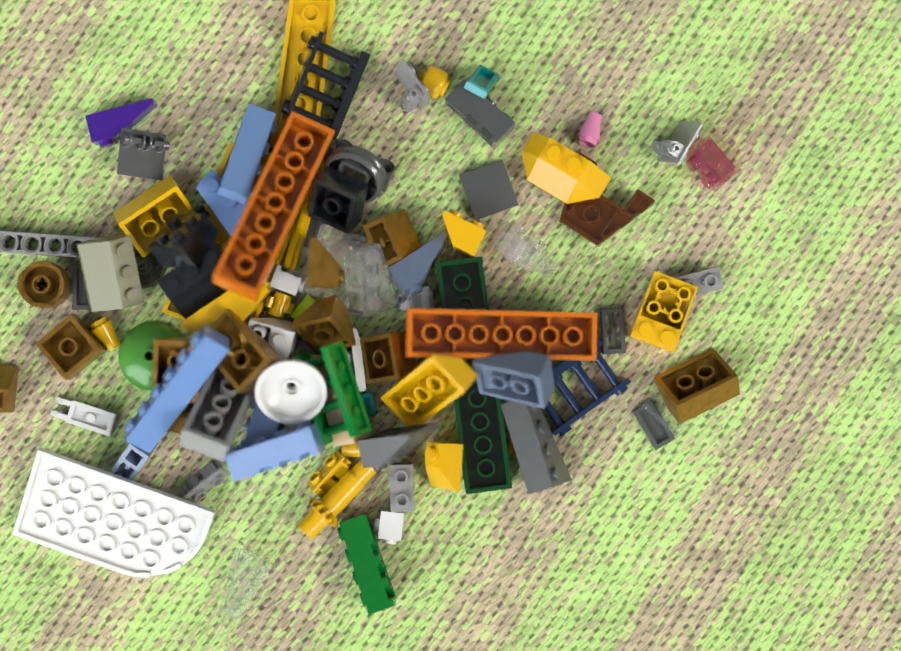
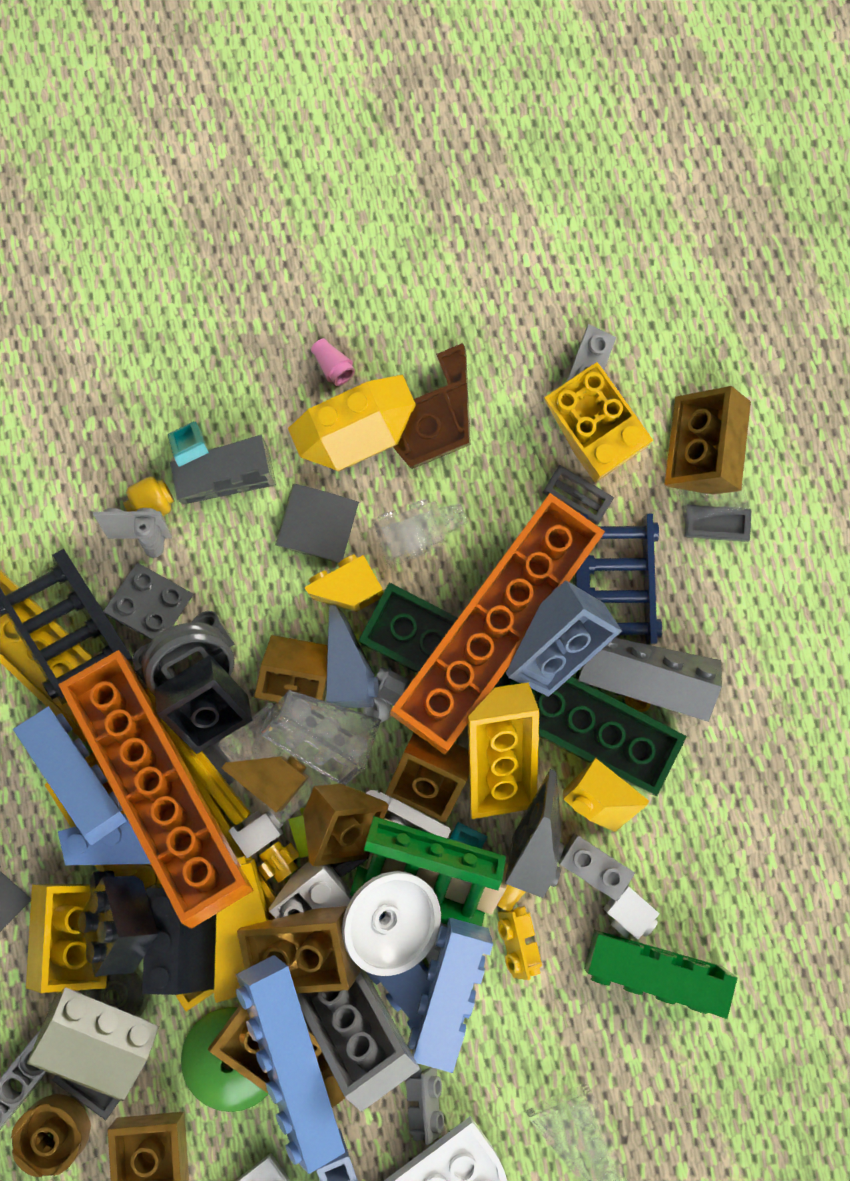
camera: 55 degrees left, 5 degrees down
(105, 332) = (162, 1099): yellow cone -> none
(335, 500) = (557, 960): yellow gear -> none
(373, 125) = (148, 602): none -> dark grey hinge
(676, 148) = (417, 272): light grey hinge -> none
(710, 164) = (466, 255): clear pink slope -> none

